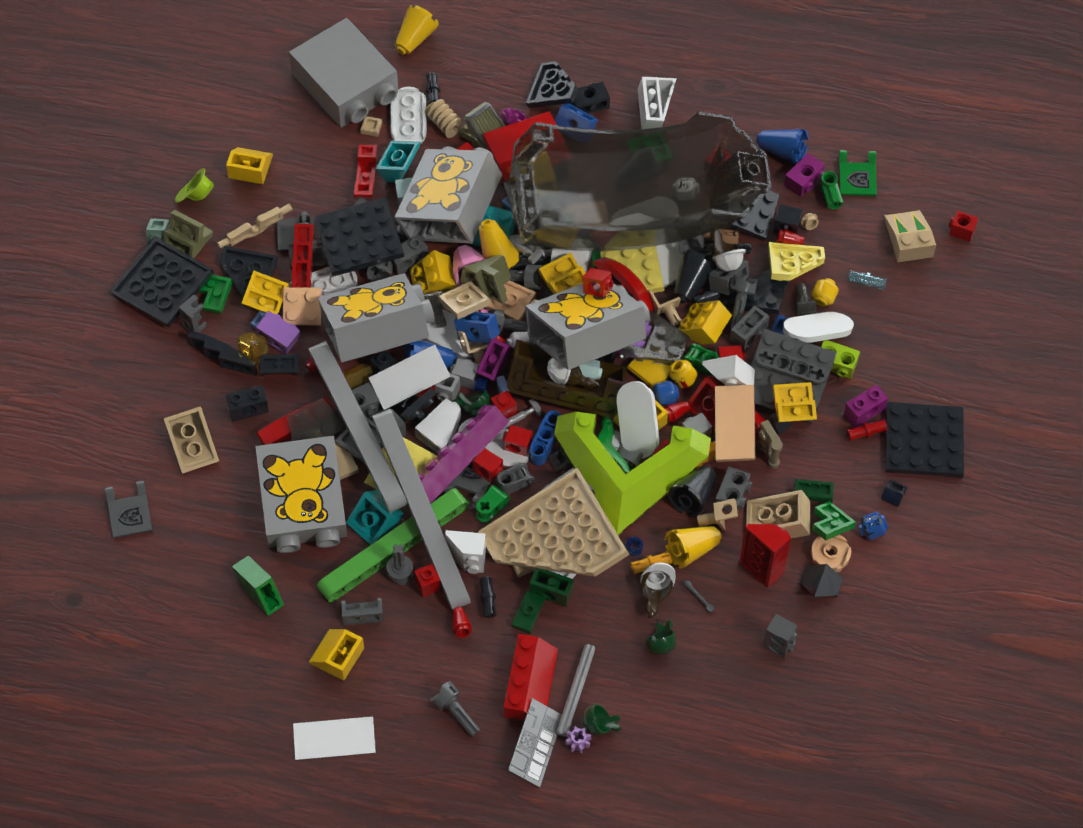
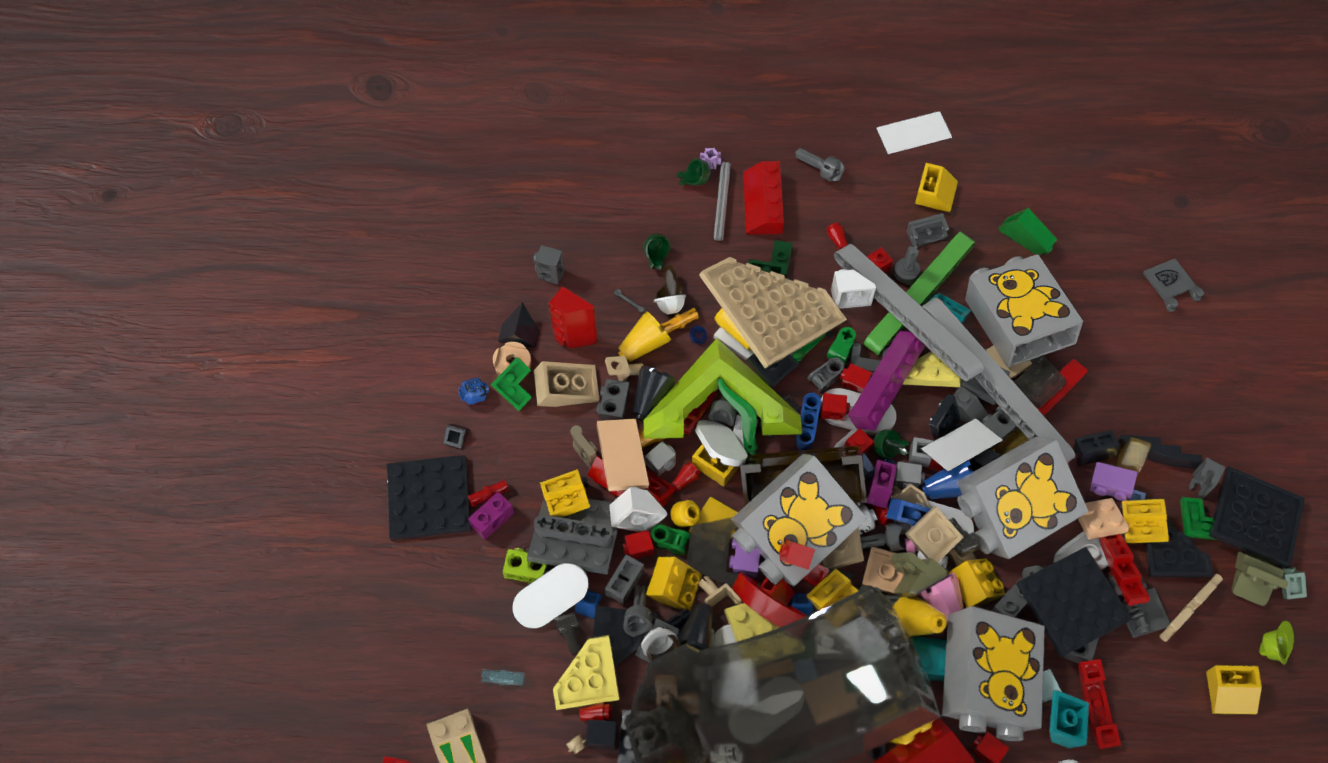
camera: 170 degrees right, 5 degrees up
(191, 439) = (1149, 357): tan slope -> none
(247, 403) = (1111, 401): black brick -> none
(439, 426) = (914, 411): white slope -> none
(488, 597) = (820, 262): black pin -> none
(535, 743) = (745, 149): light grey sticker -> none
(665, 393) = (700, 489): blue head -> none
(815, 490) = (535, 418): dark green plate -> none
(824, 292) = (548, 646): yellow head -> none

